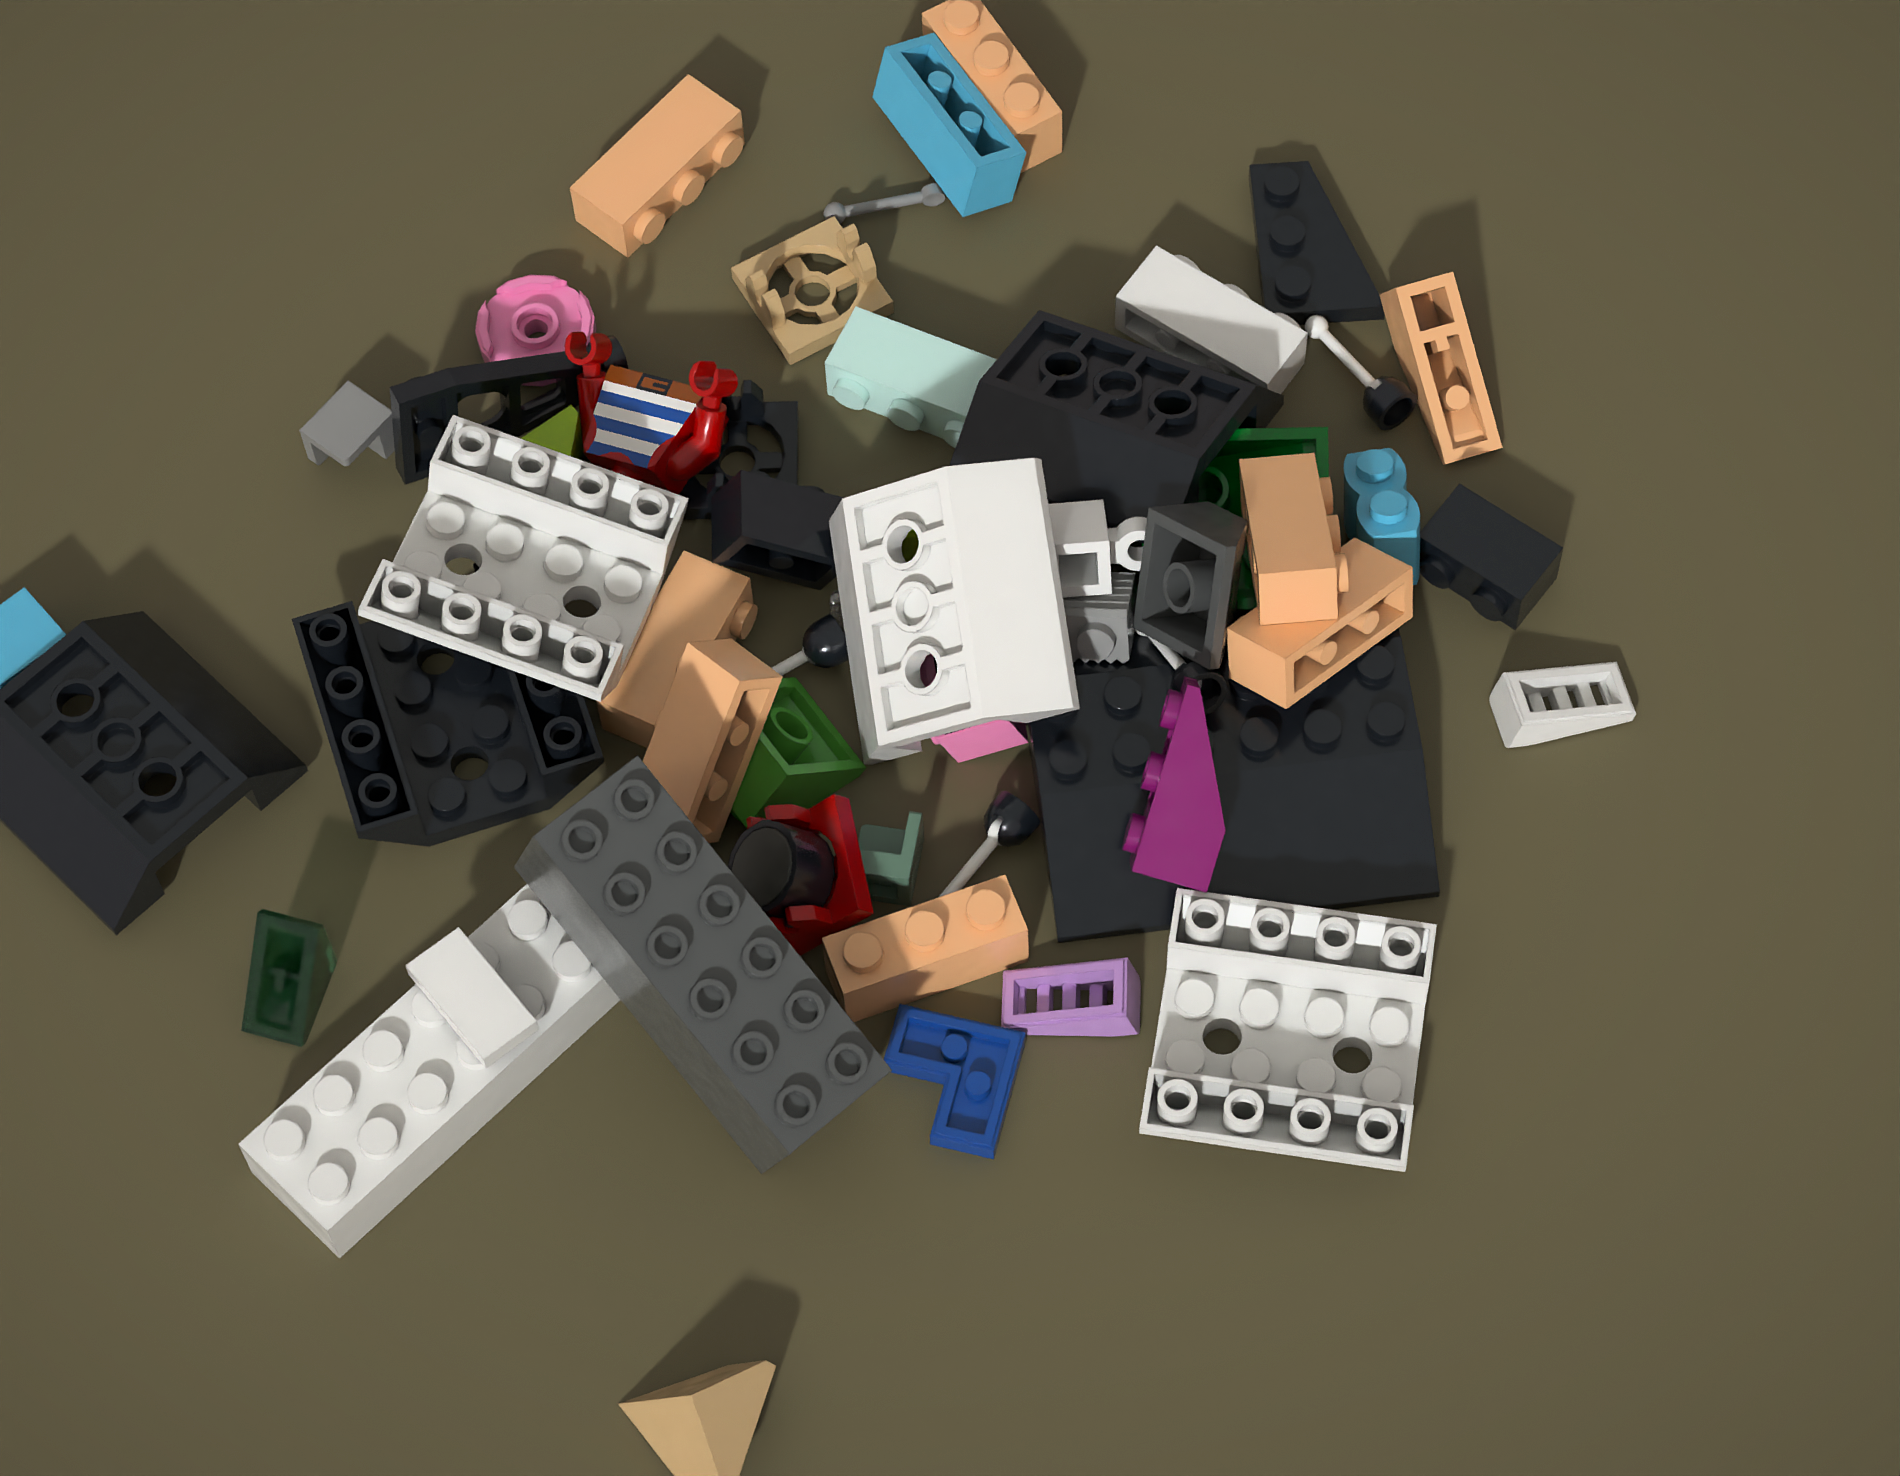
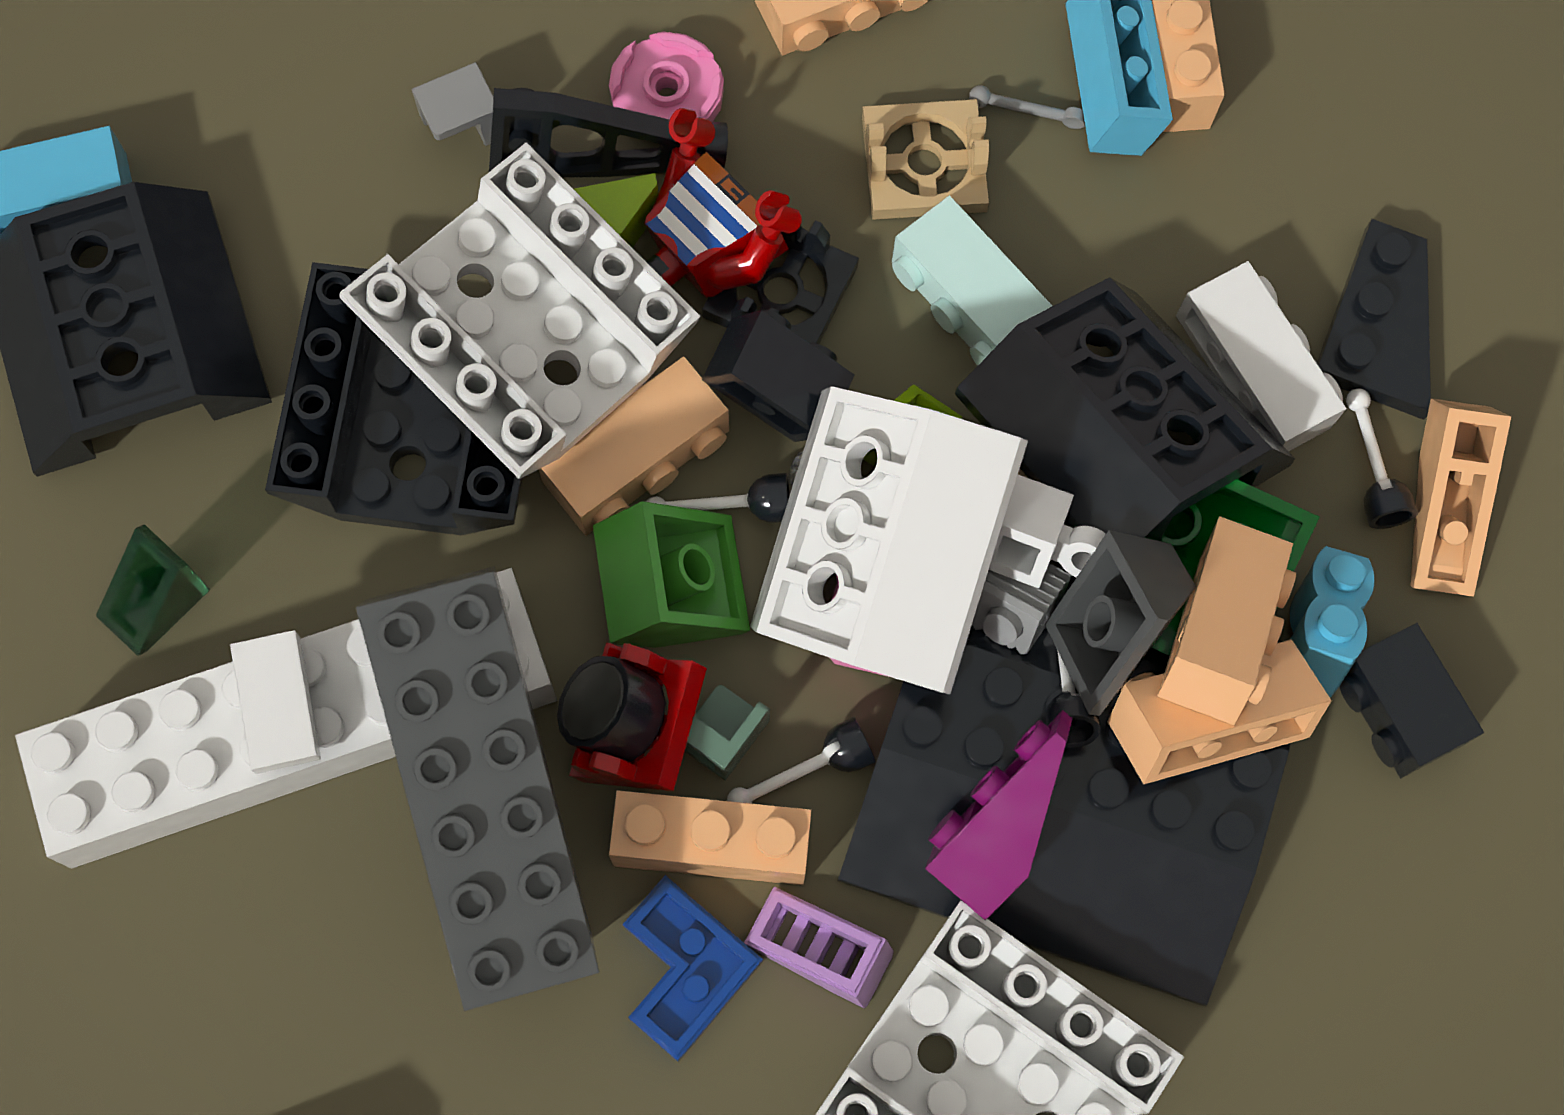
camera: 20 degrees right, 10 degrees up
(710, 729) = (603, 552): light nougat brick -> none
(1524, 718) = (1368, 866): white slope -> none

